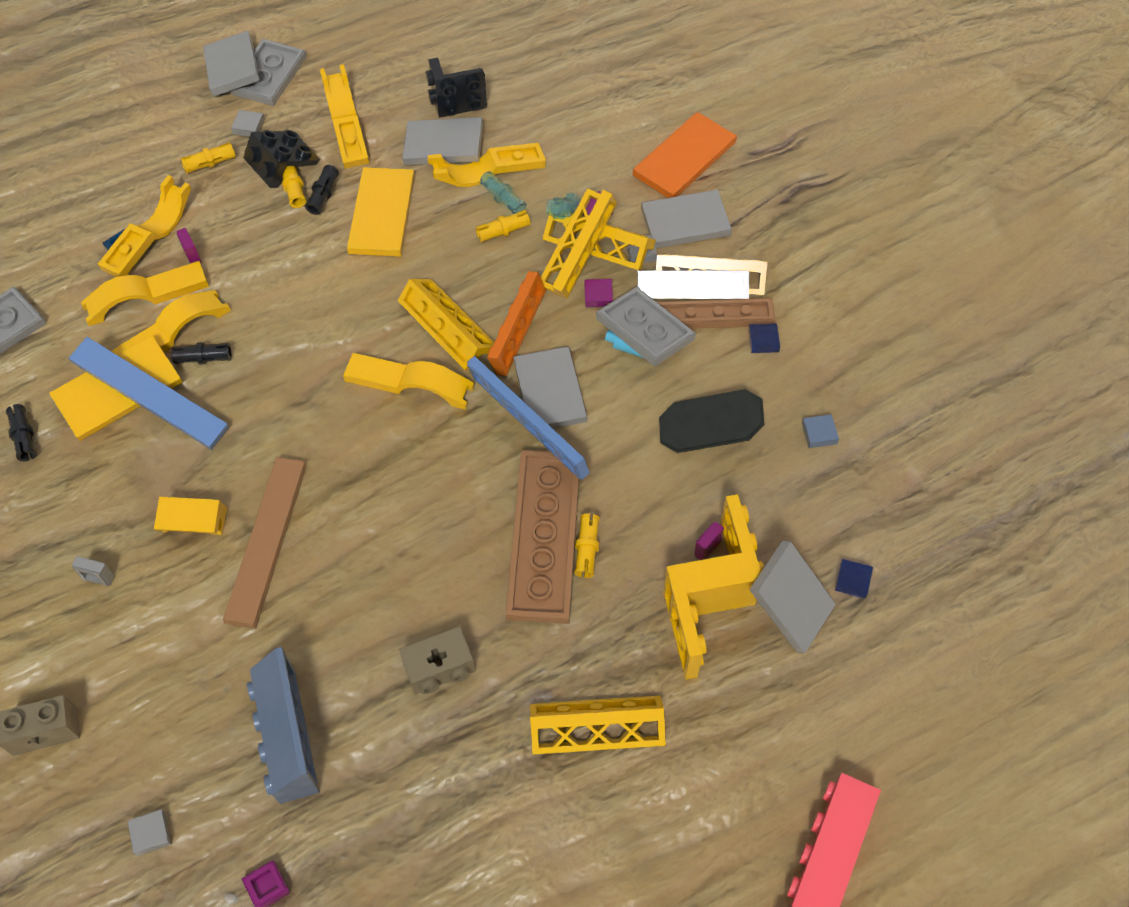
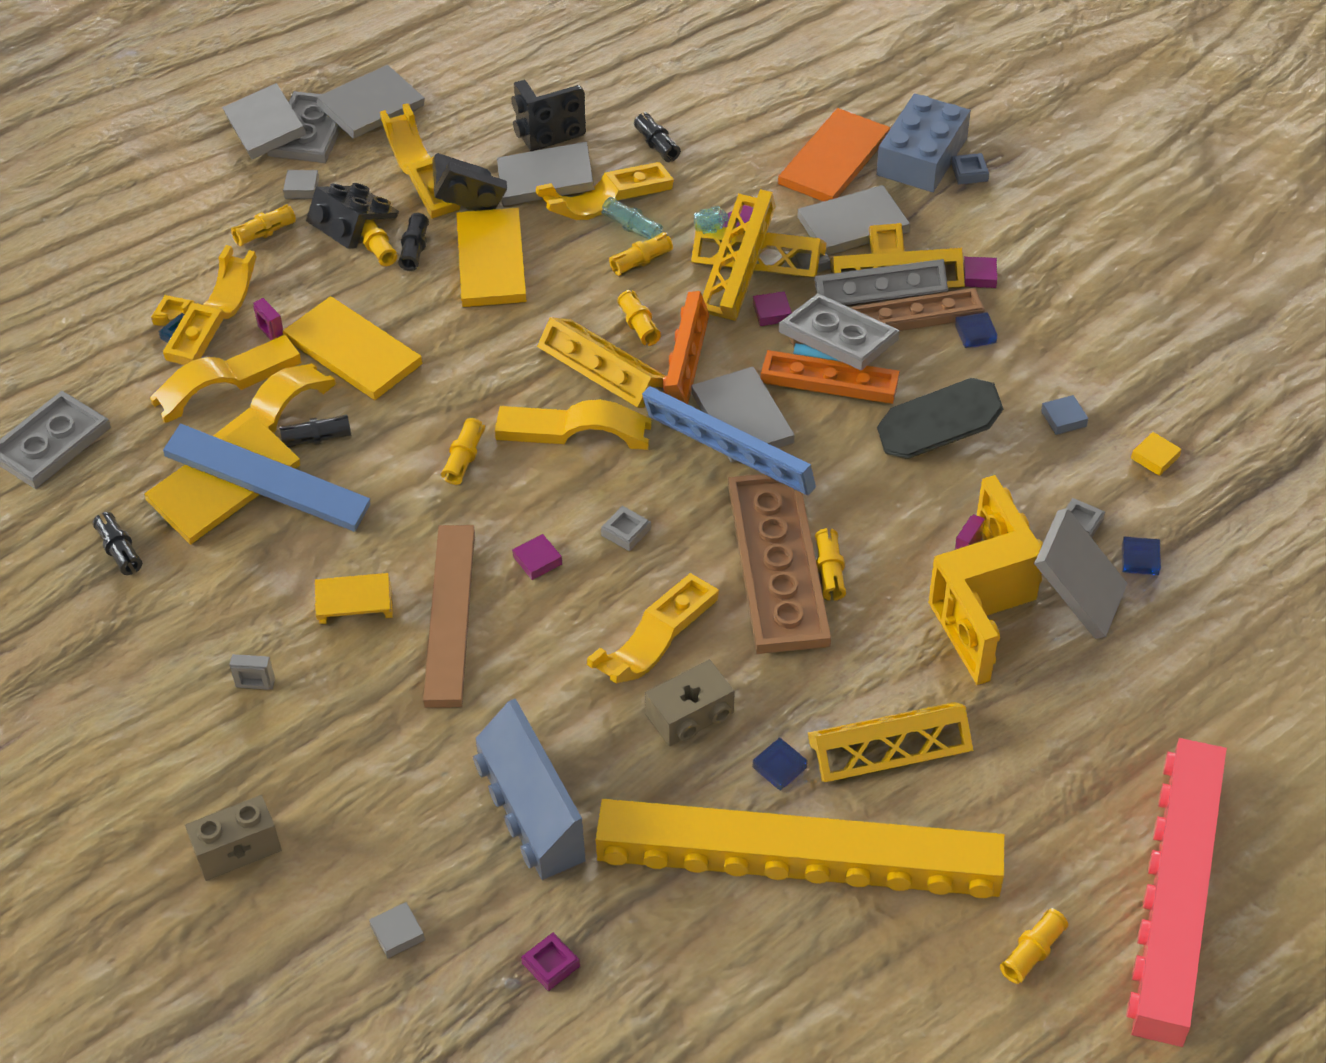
camera: 10 degrees left, 10 degrees down
(117, 223) = (169, 309): none -> yellow tile
(251, 280) = (353, 347): none -> yellow tile
(313, 390) = (463, 451): none -> yellow pin
(318, 51) = (359, 102): none -> light grey tile
(349, 498) = (537, 556): none -> magenta tile
(374, 143) = (466, 184): none -> black bracket
(426, 587) = (656, 630): none -> yellow piece
(428, 482) = (626, 528): none -> light grey tile
(486, 286) = (639, 318): none -> yellow pin
(496, 818) = (801, 848): none -> yellow brick
(500, 729) = (779, 763): none -> clear blue tile
(542, 119) = (657, 137): none -> black pin
(629, 366) = (829, 377): none -> orange plate
(708, 243) = (886, 238): none -> yellow tile
(760, 154) = (923, 142): none -> sand blue brick
(780, 283) = (980, 272): none -> magenta tile
(795, 183) = (970, 168): none -> sand blue tile
(810, 535) = (1087, 515): none -> light grey tile
(890, 481) = (1156, 453): none -> yellow tile

